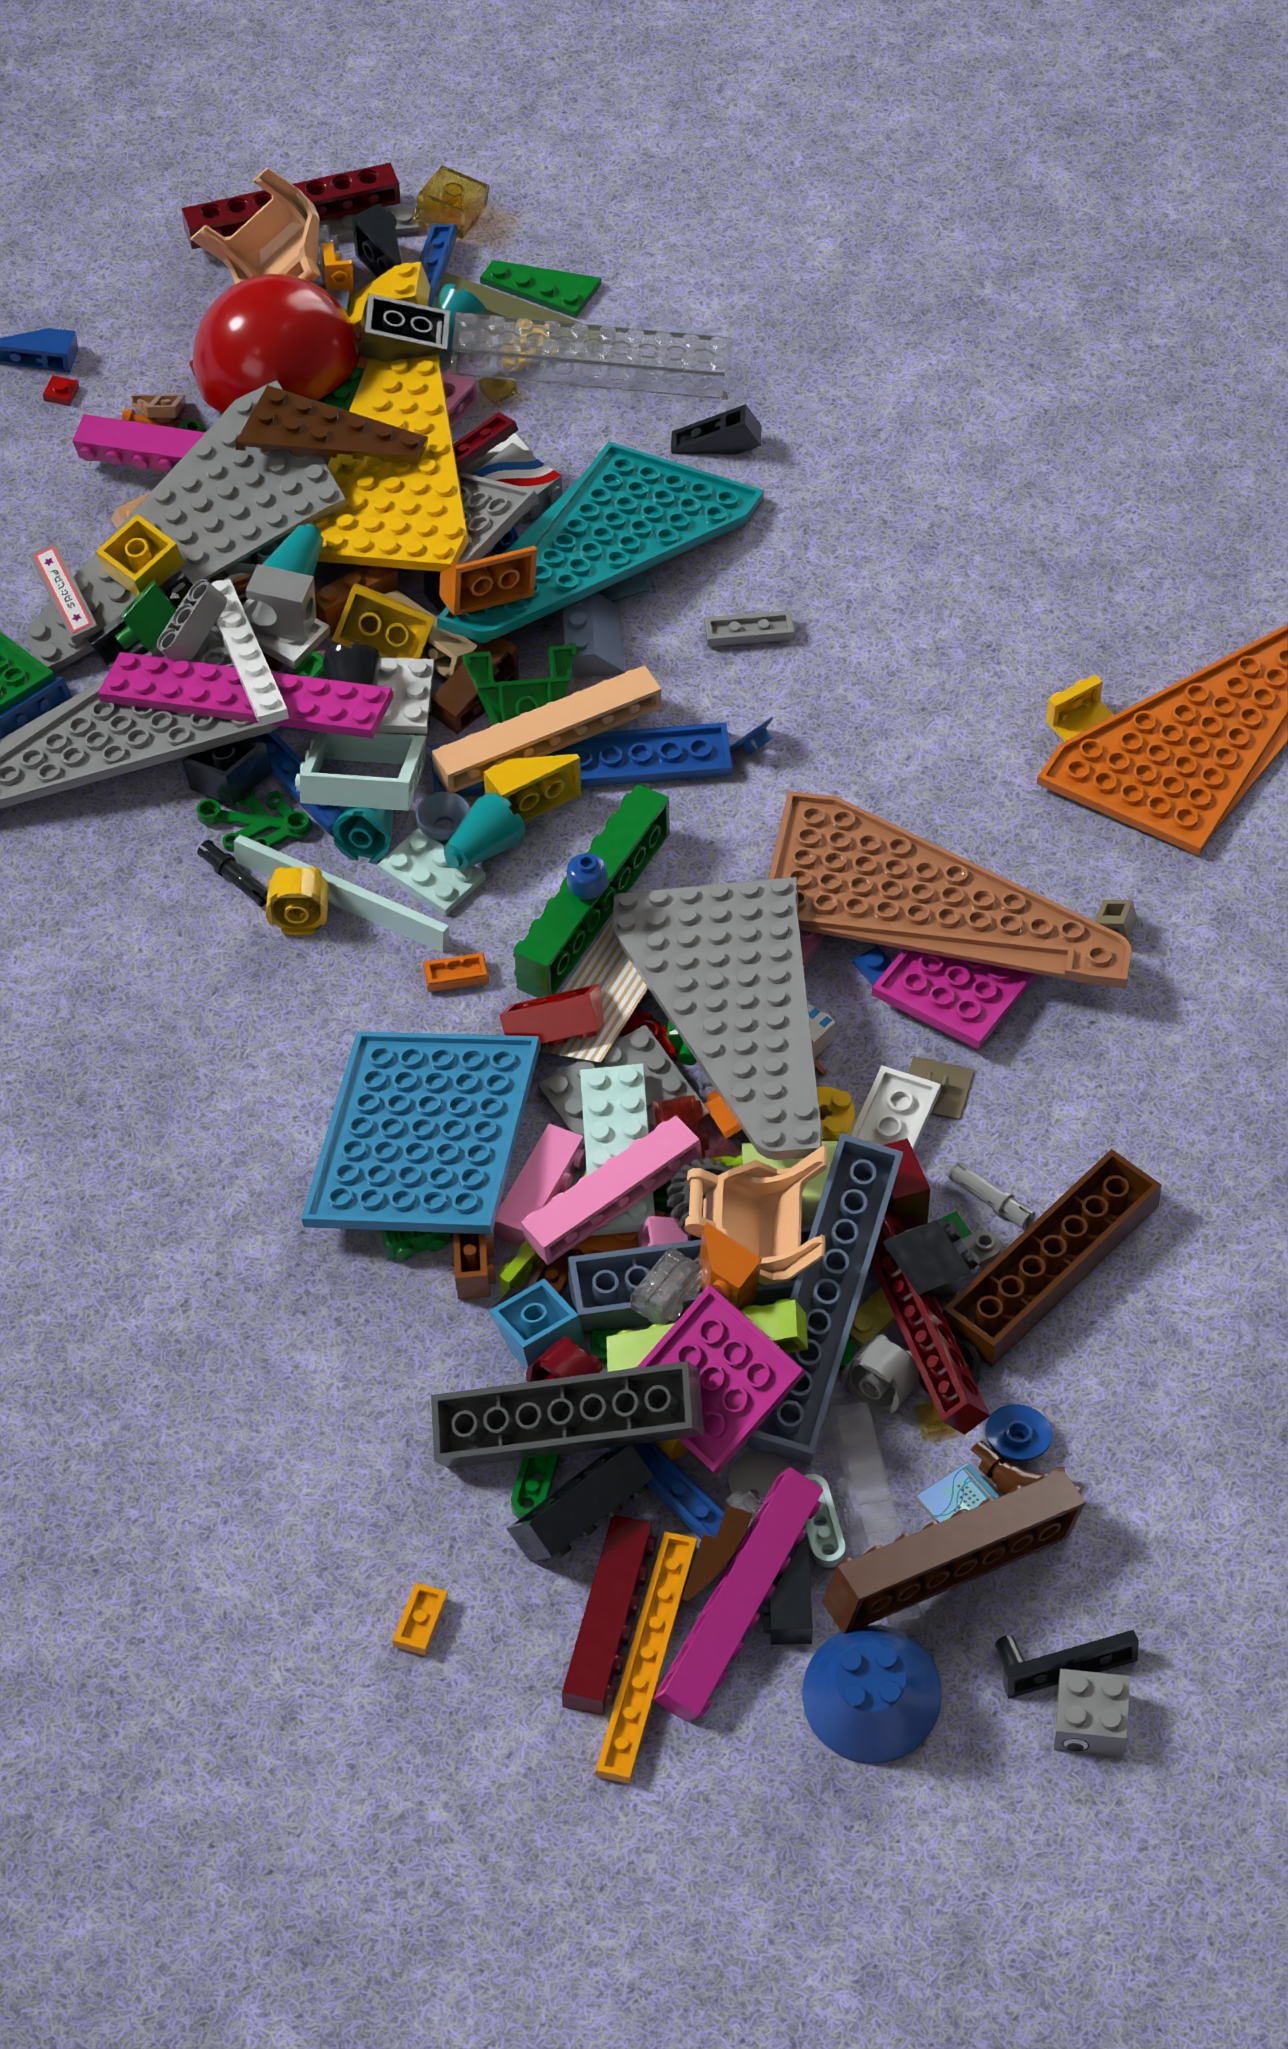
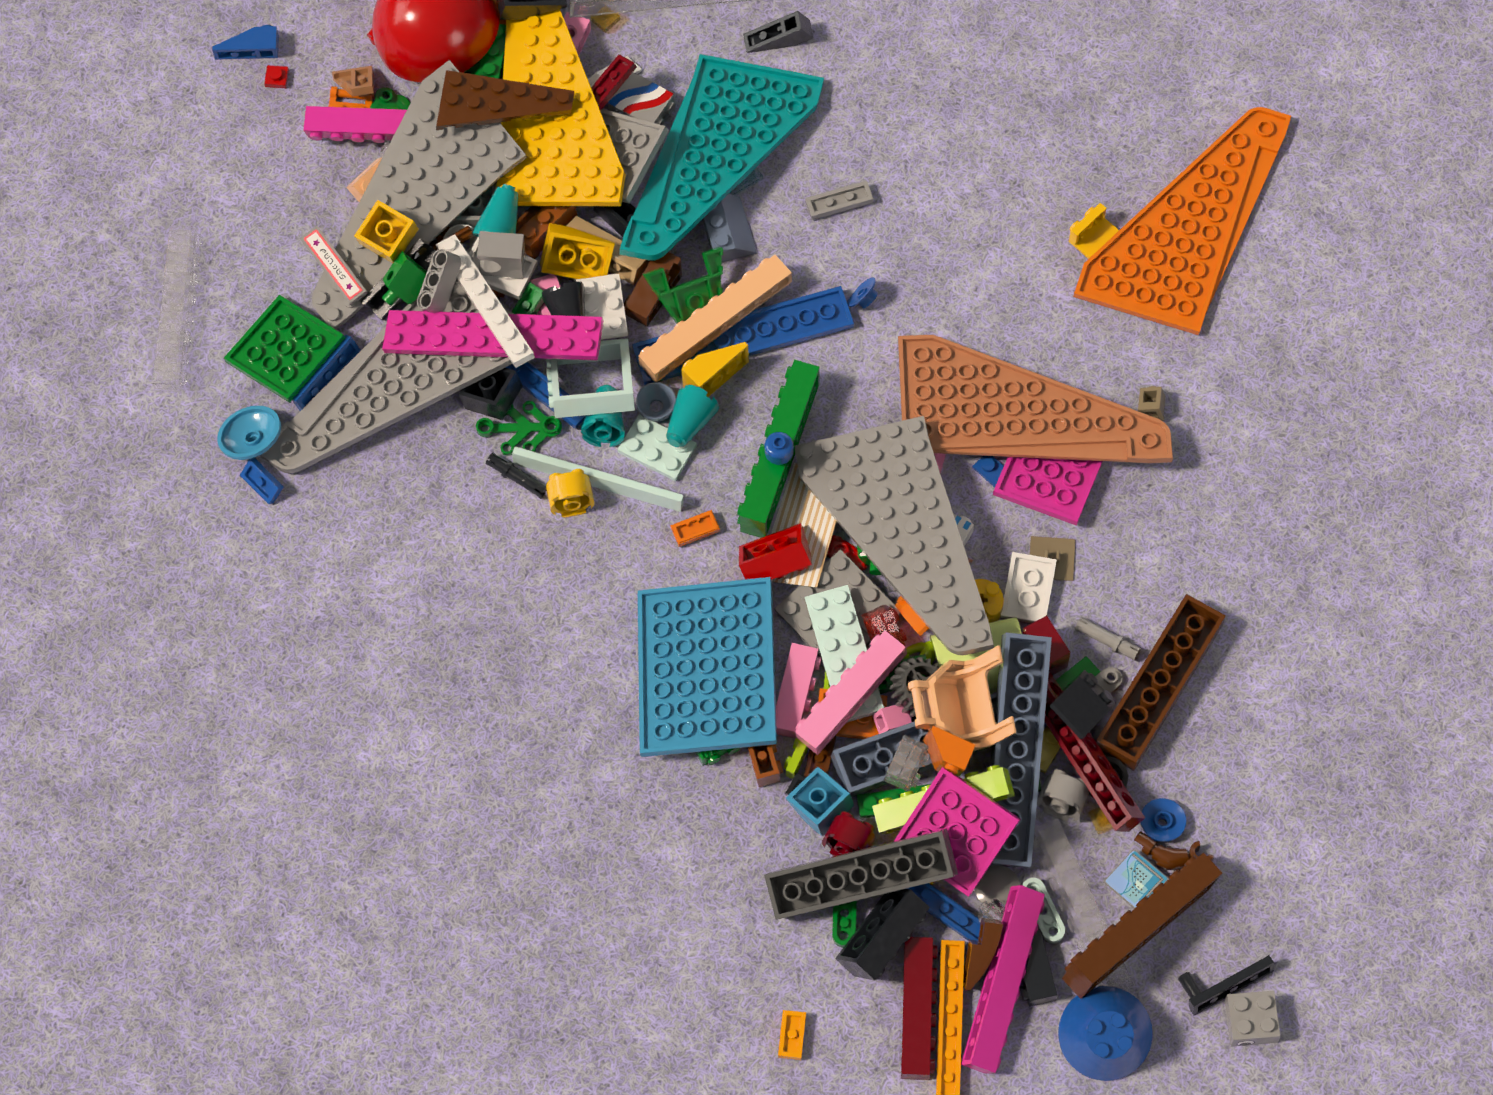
camera: 10 degrees left, 15 degrees up
(489, 581) = (651, 212): orange slope -> none

